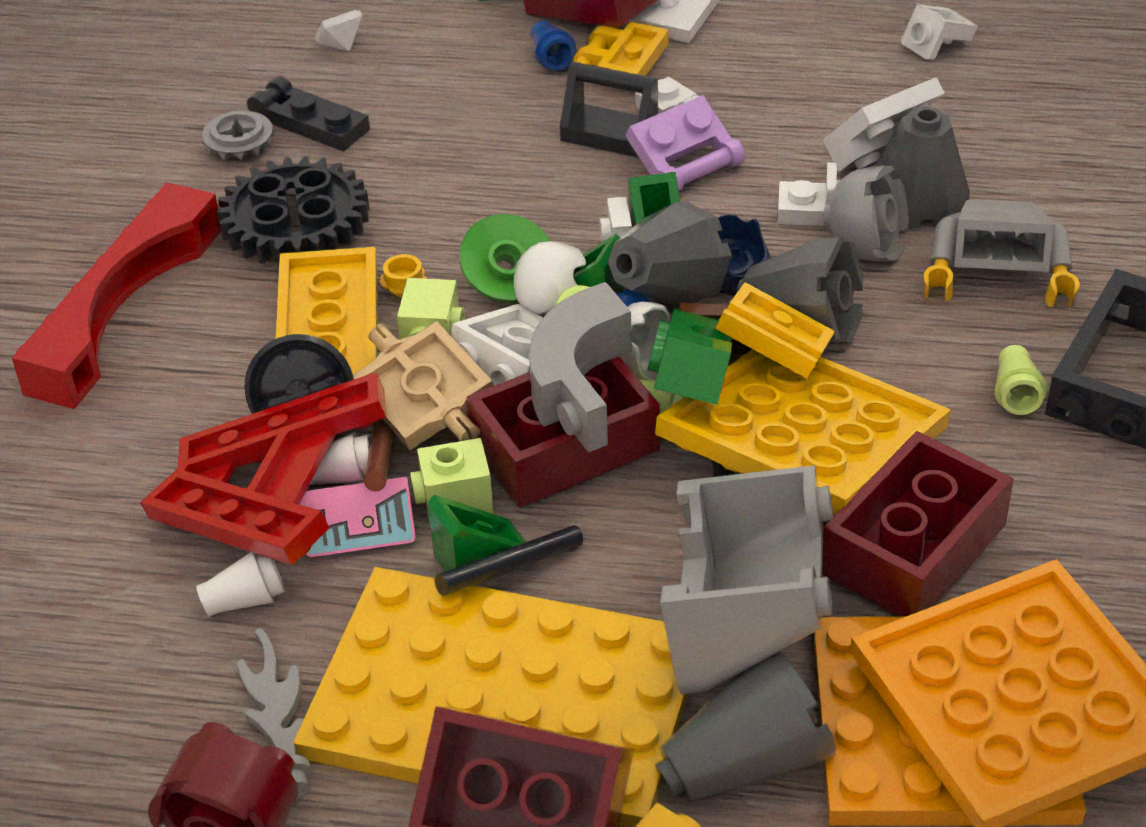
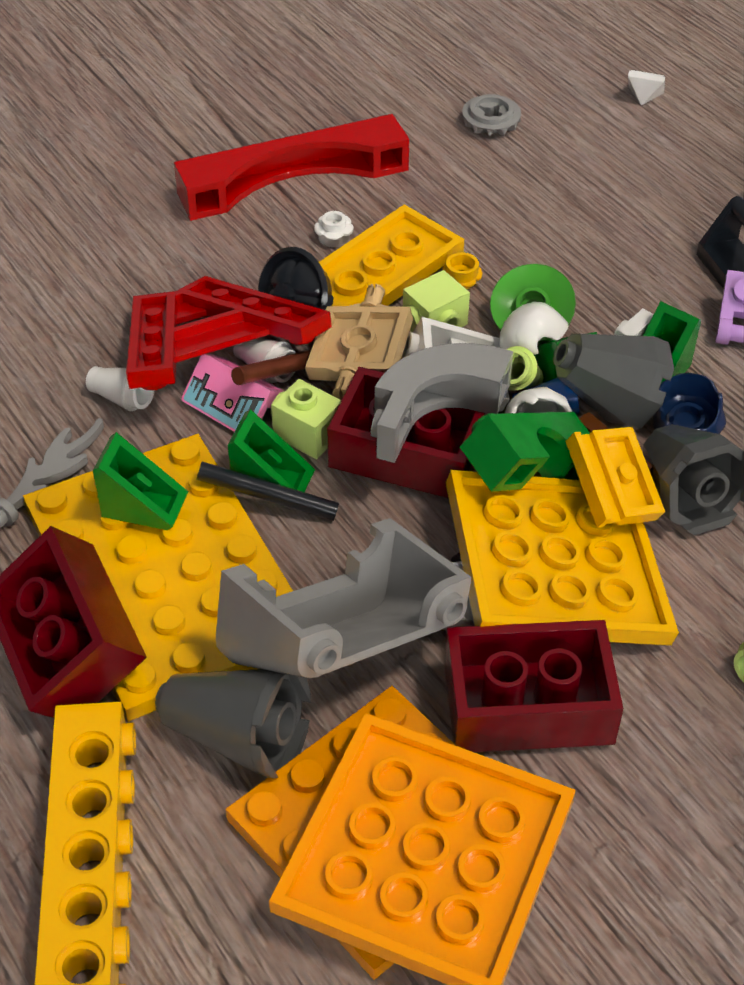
camera: 45 degrees right, 5 degrees up
(235, 320) = (334, 229): none -> white plate
(258, 216) = (454, 182): black gear -> none
(309, 114) = (553, 130): black plate -> none
(415, 640) = (135, 487): none -> green slope

